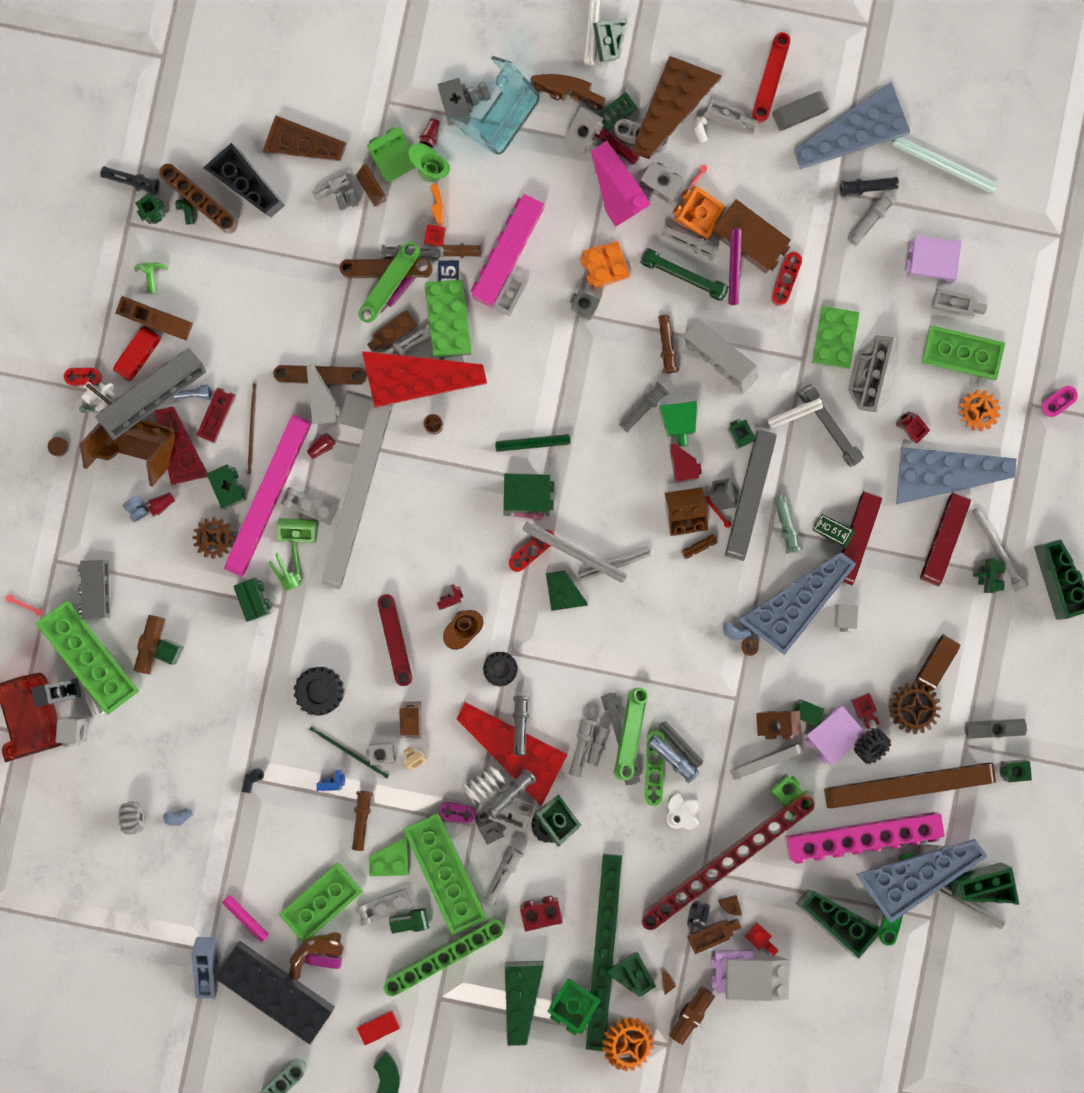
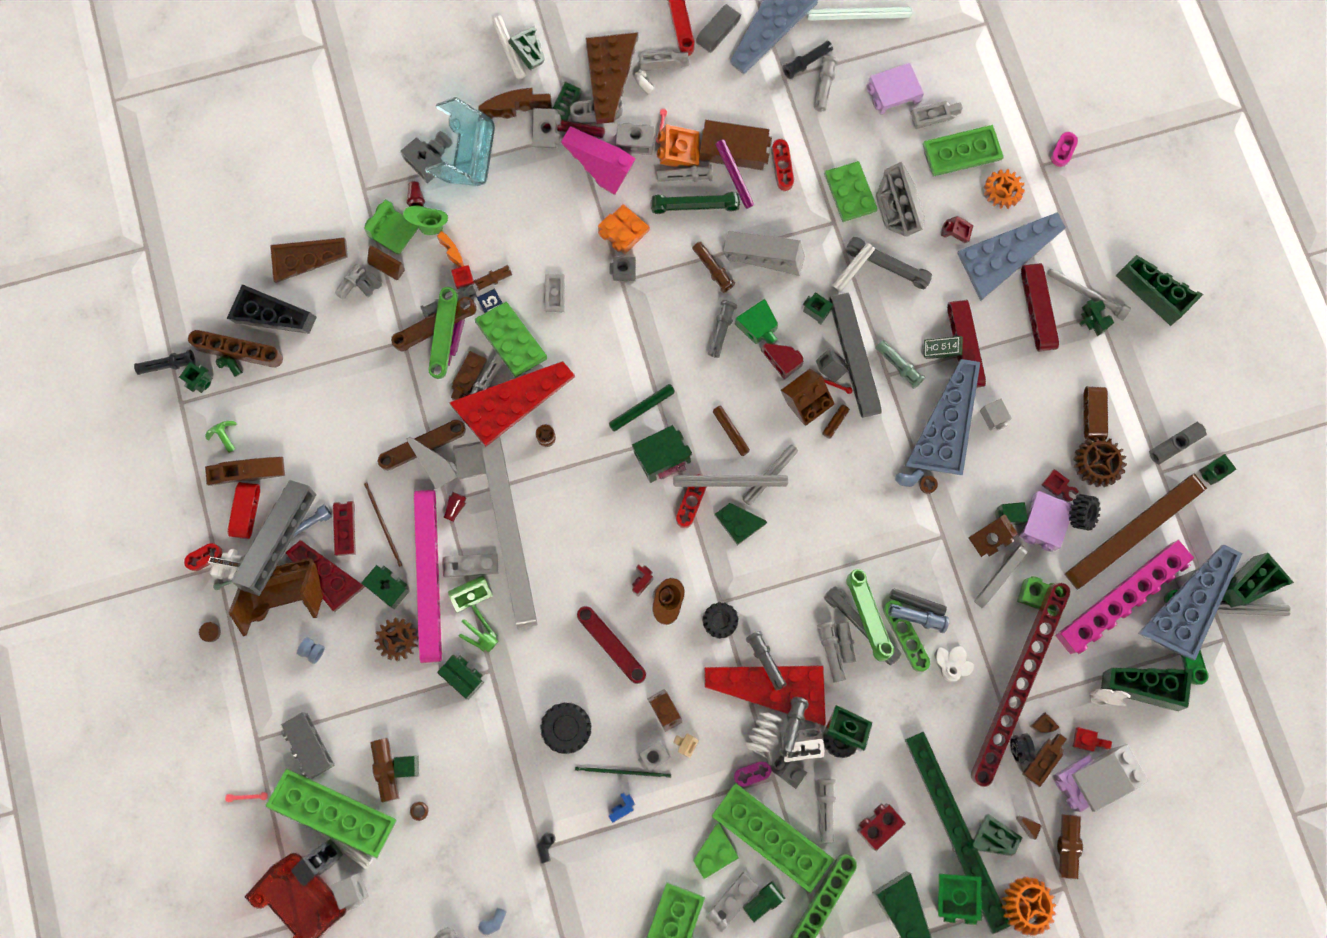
camera: 30 degrees left, 10 degrees down
(155, 693) = (412, 811): none -> reddish brown piece
(159, 504) = (330, 635): dark red cone -> none
(362, 811) = (664, 819): reddish brown pin -> none
(508, 250) = (533, 257): dark pink brick -> none
(601, 509) = (731, 430): none -> reddish brown axle
(793, 910) = (1107, 696): none -> white plate

